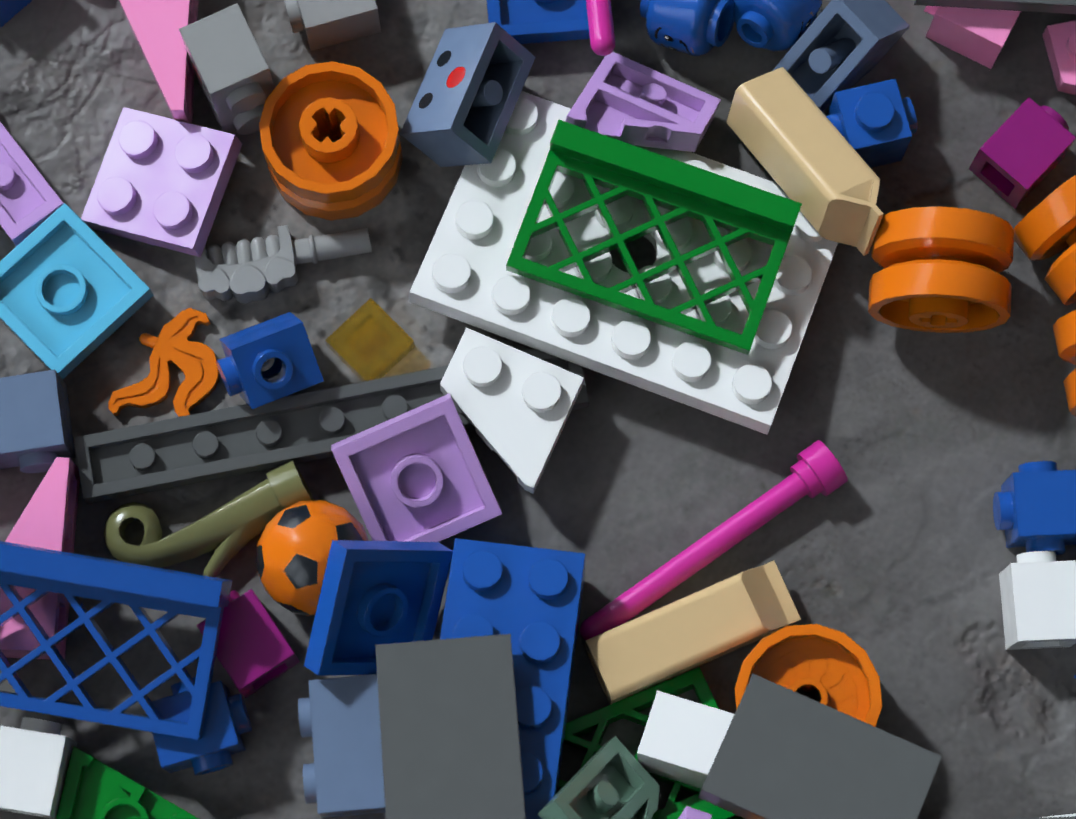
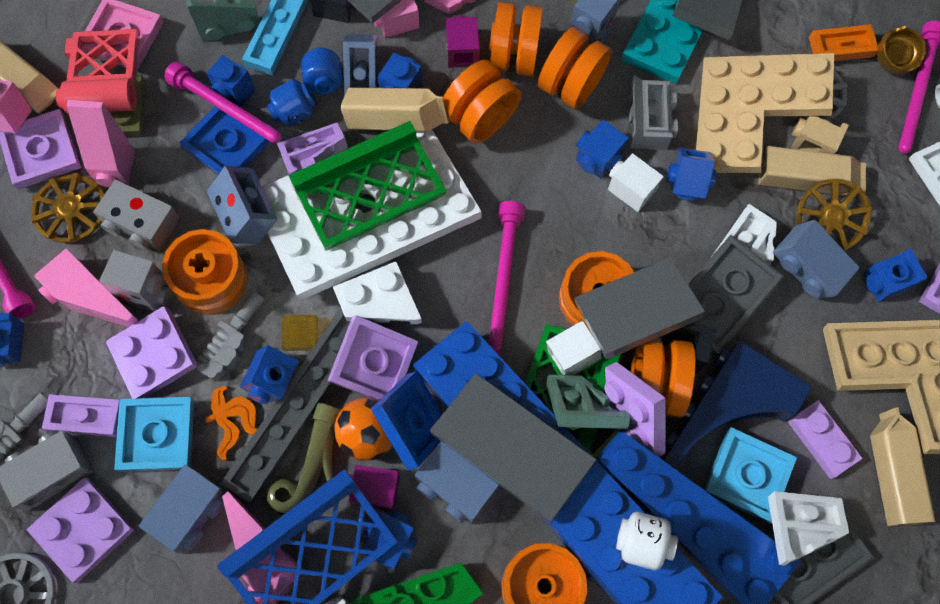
camera: 50 degrees left, 5 degrees down
(691, 631) = (530, 314): tan piece -> none

